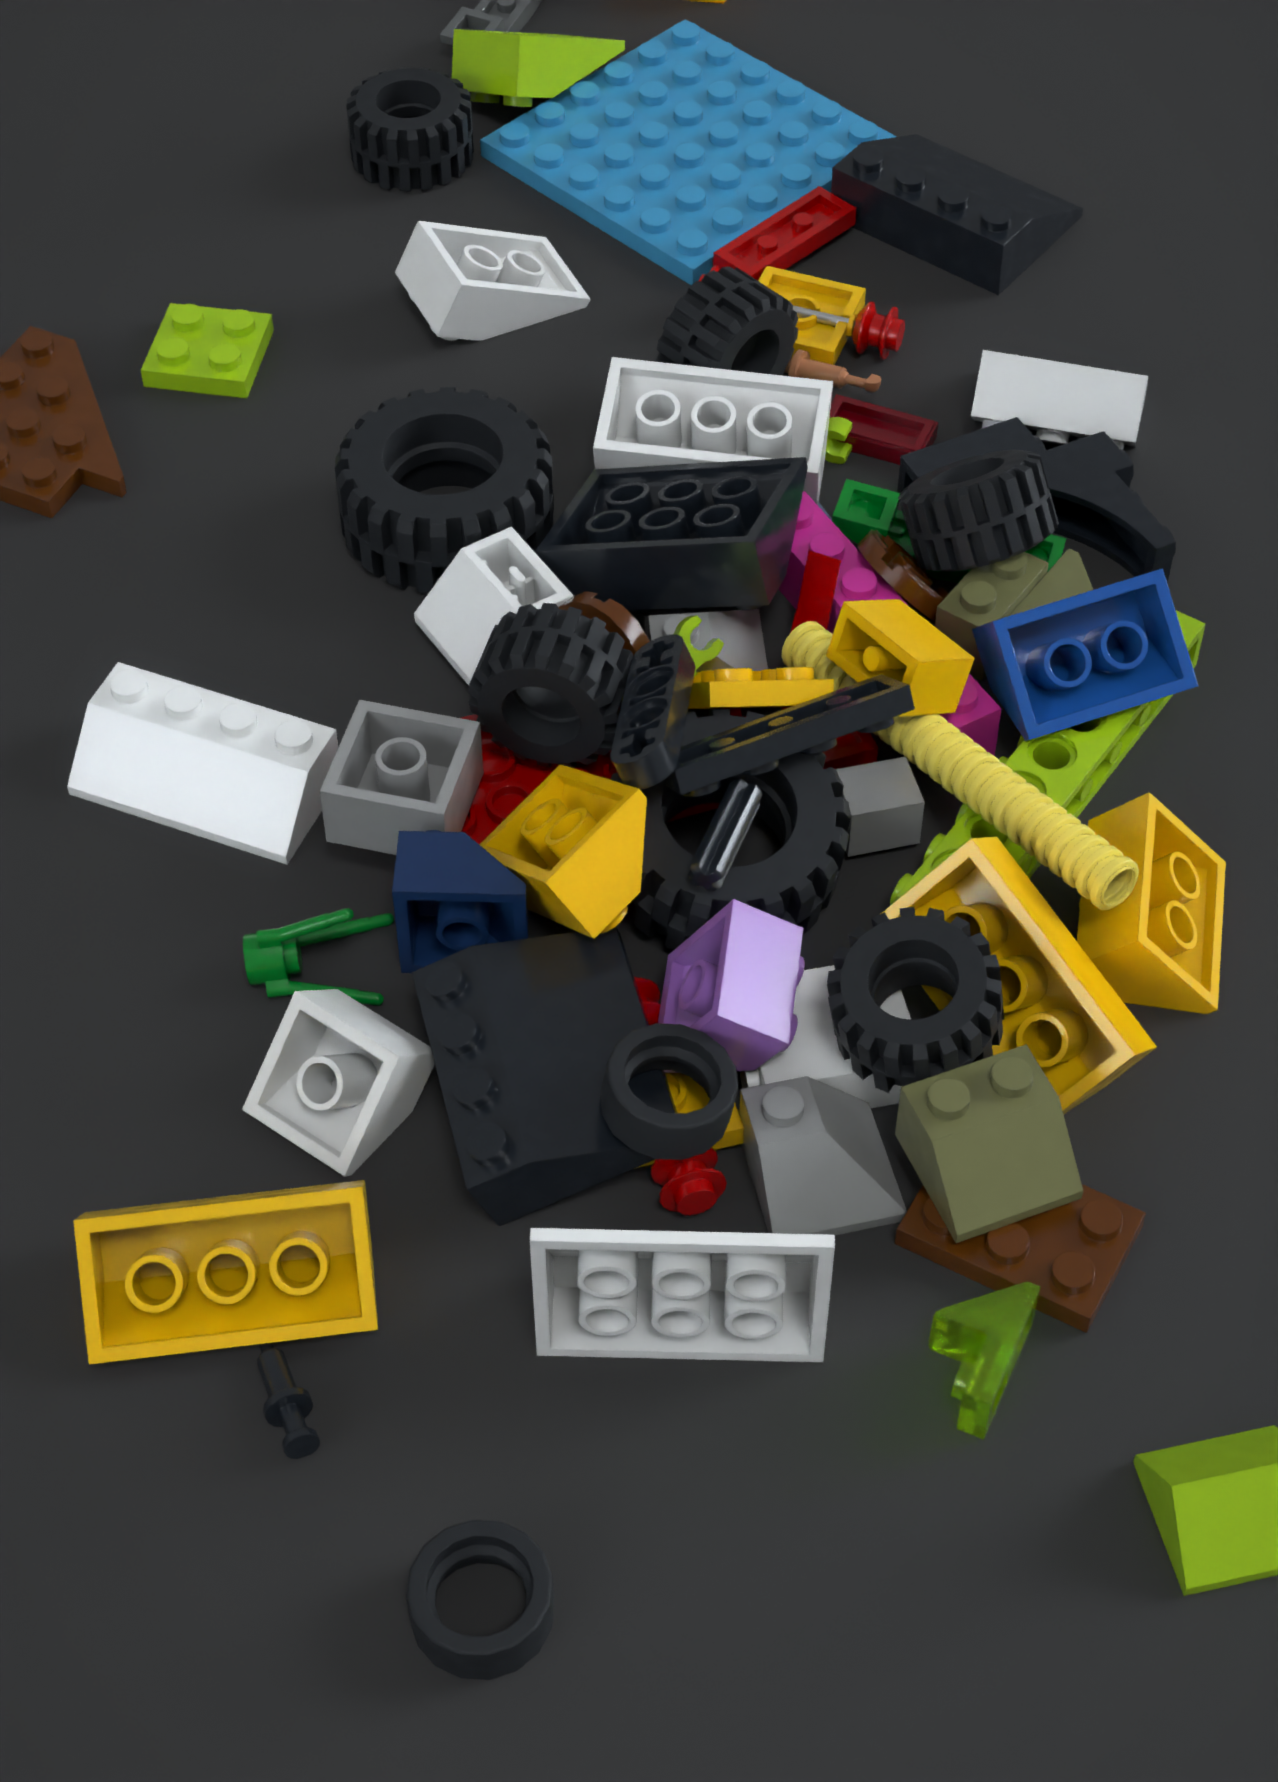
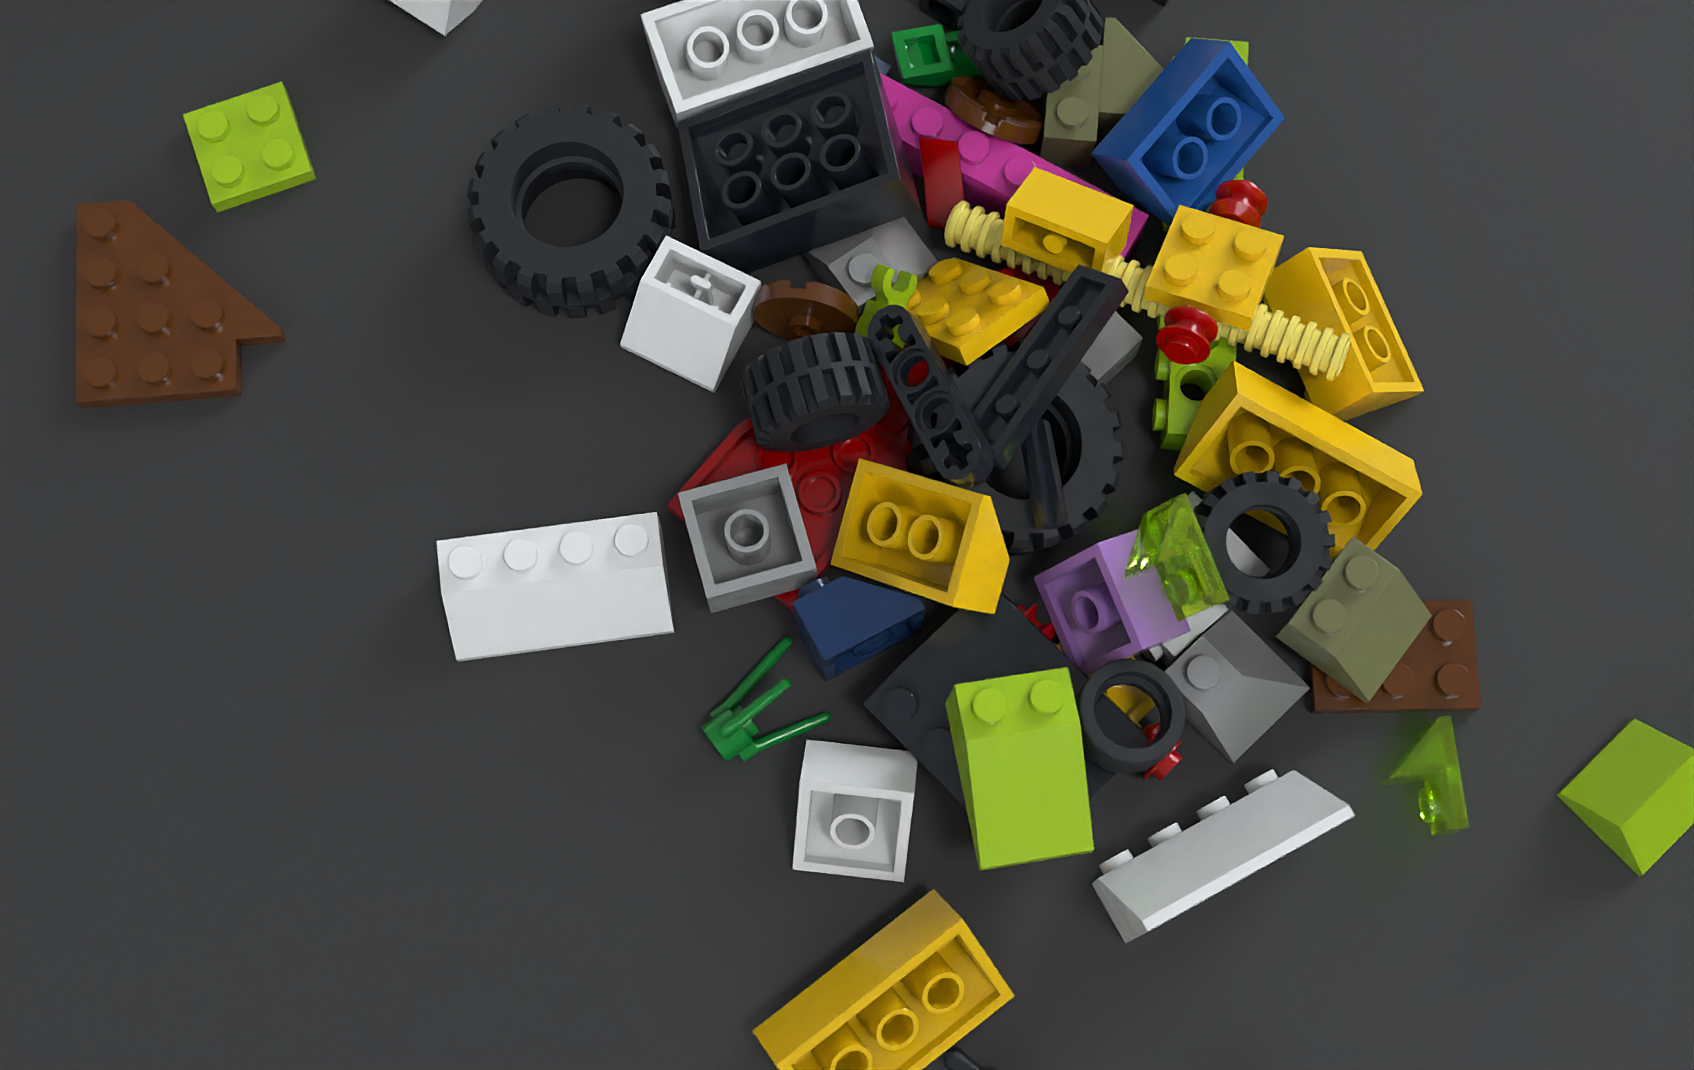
camera: 30 degrees left, 25 degrees up
(520, 1069) = (1021, 767): none -> lime slope
(813, 949) = (1175, 546): none -> clear neon green slope
(1025, 754) = (1212, 270): none -> yellow plate

